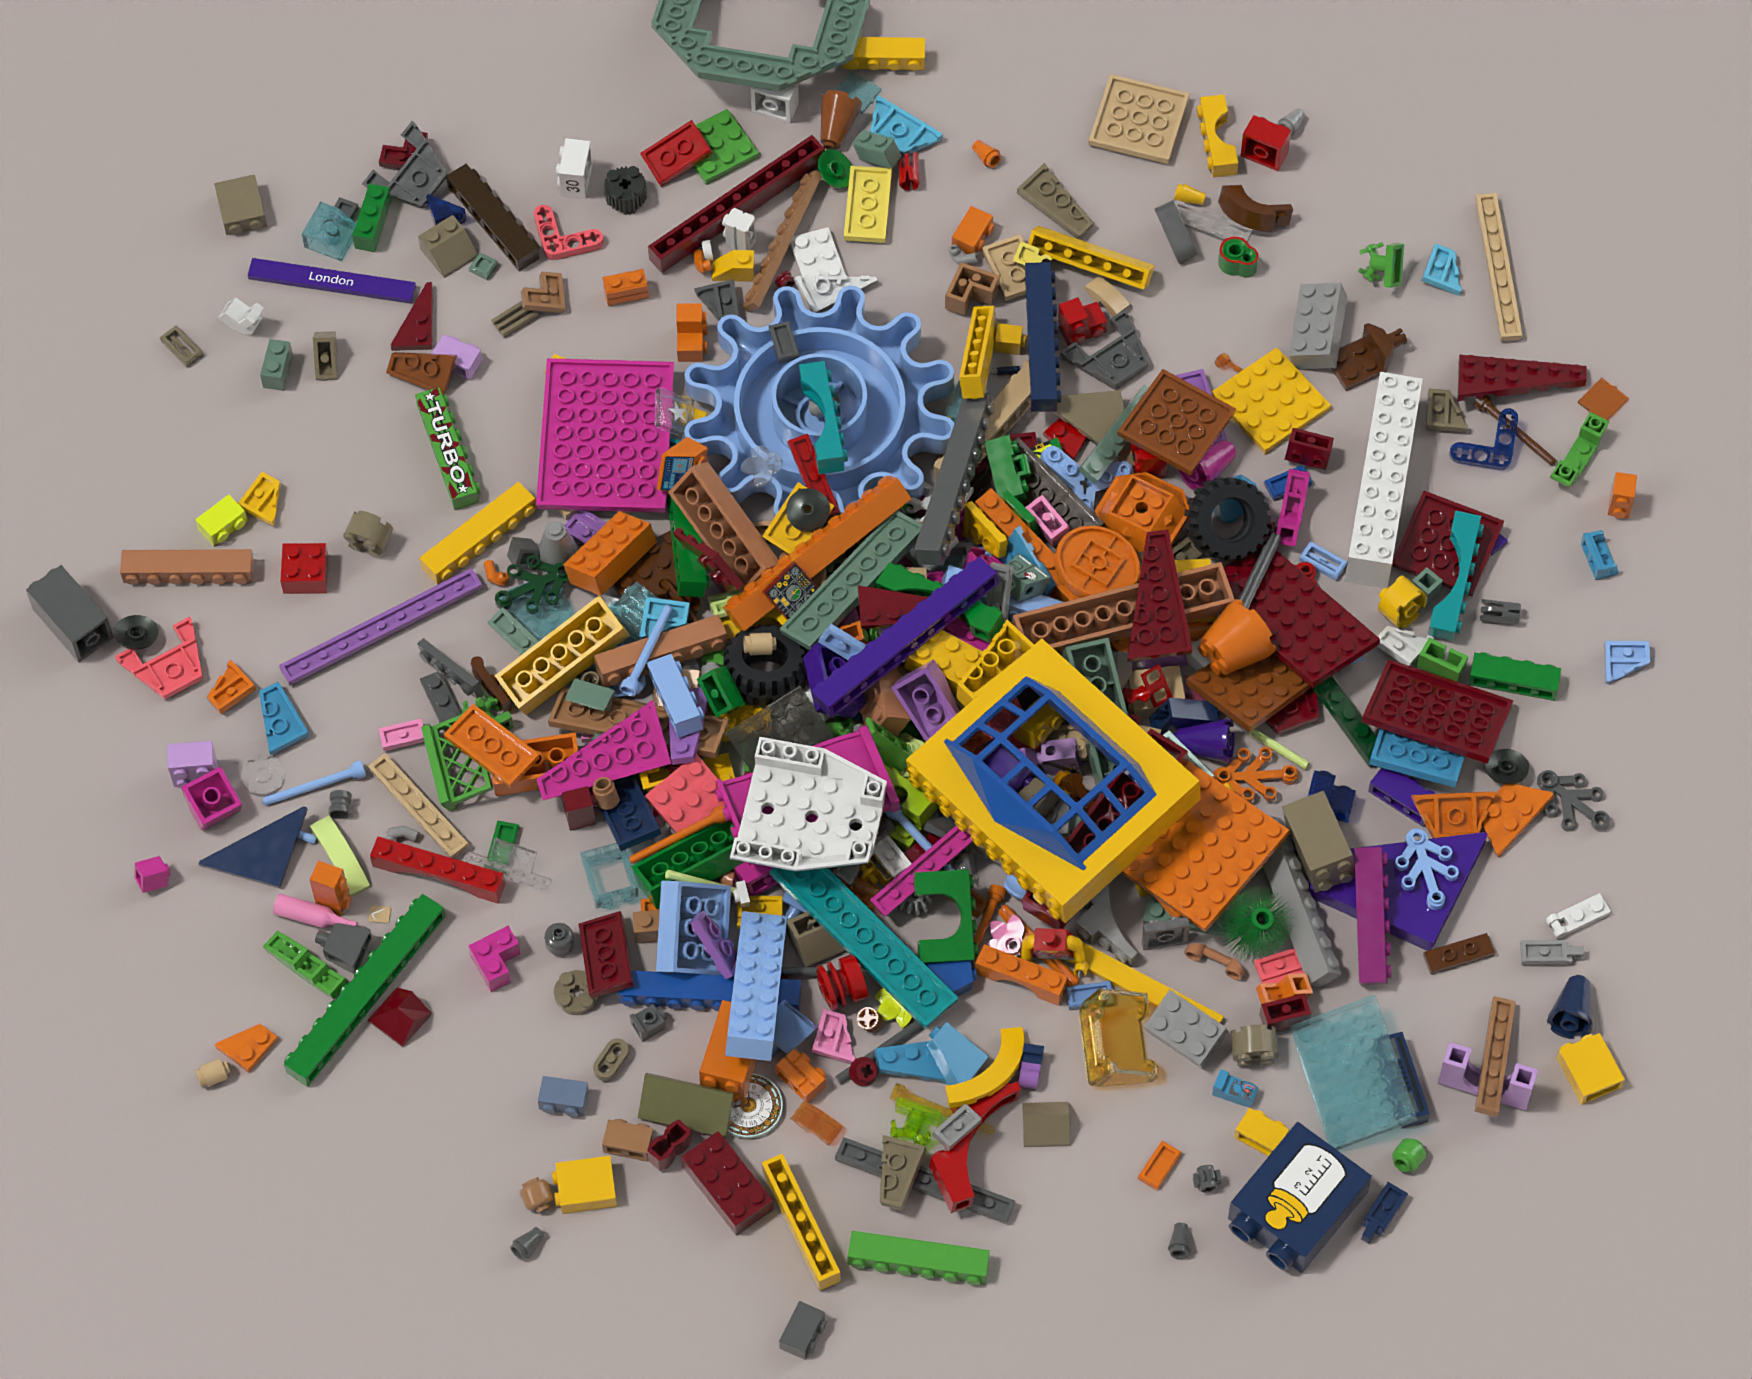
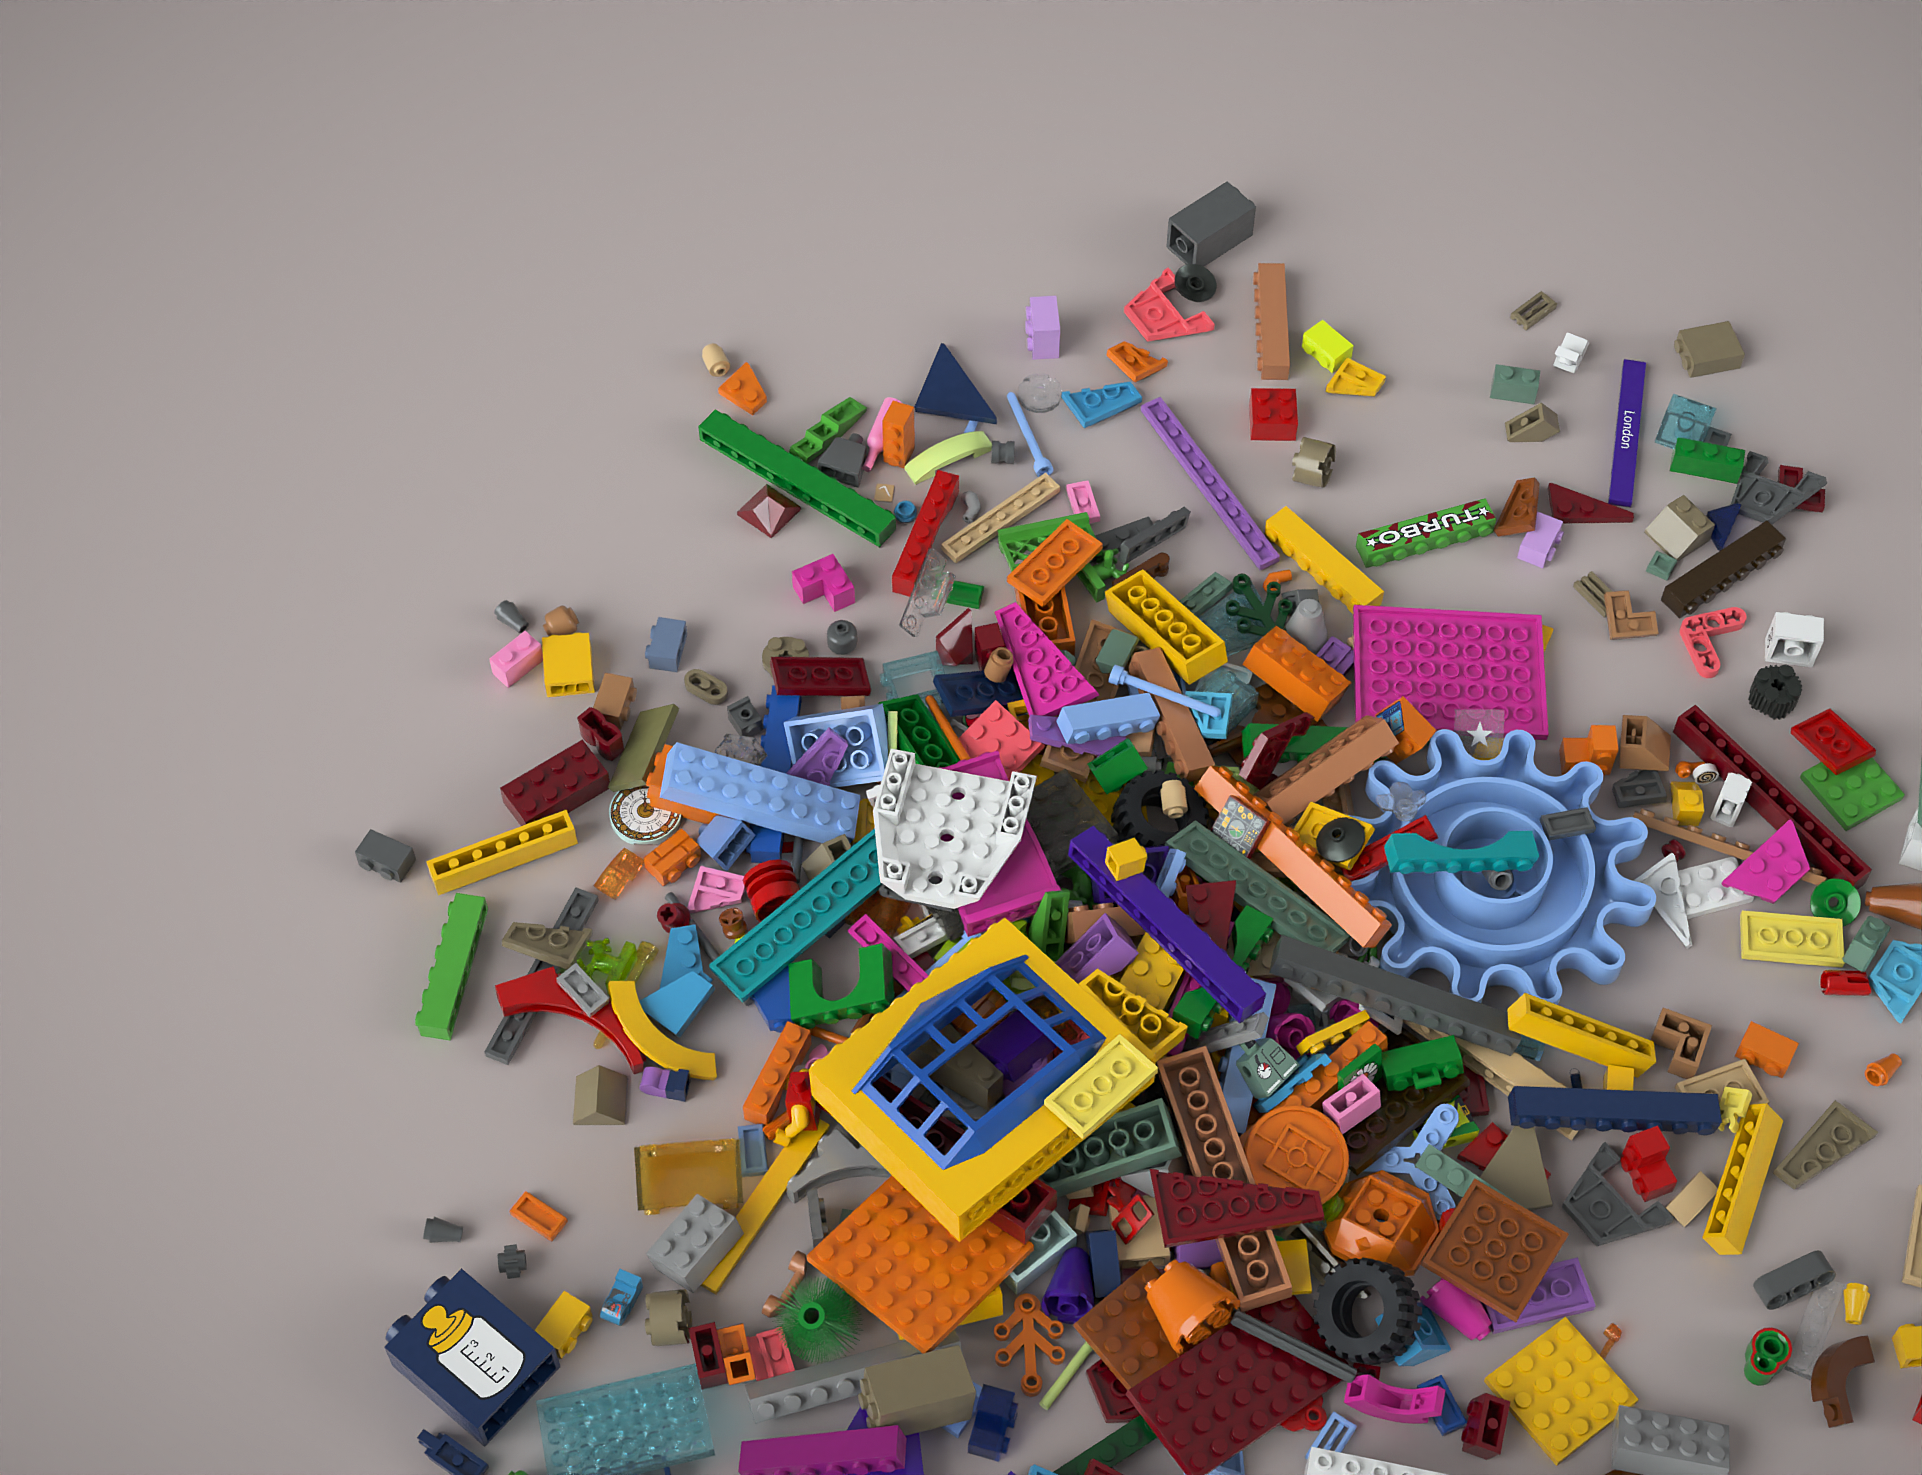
camera: 90 degrees right, 5 degrees down
(151, 874) = (927, 303): dark pink brick -> none
(211, 798) = (1005, 343): dark pink slope -> none
(407, 891) = (905, 511): none -> dark azure plate
(569, 835) = (955, 641): none -> dark red slope
(580, 1231) = (516, 659): none -> bright pink brick
(625, 287) = (1645, 691): orange brick -> none
(682, 288) = (1644, 744): none -> medium nougat slope
(694, 1019) = (742, 749): none -> clear hinge
(807, 206) = (1772, 867): none -> dark pink wing
(853, 659) = (1126, 859): none -> yellow brick
(959, 255) = (1731, 1039): light grey arm -> none
(1077, 674) = (1101, 1086): none -> light yellow plate
(1136, 541) = (1333, 1208): none -> clear neon green tile

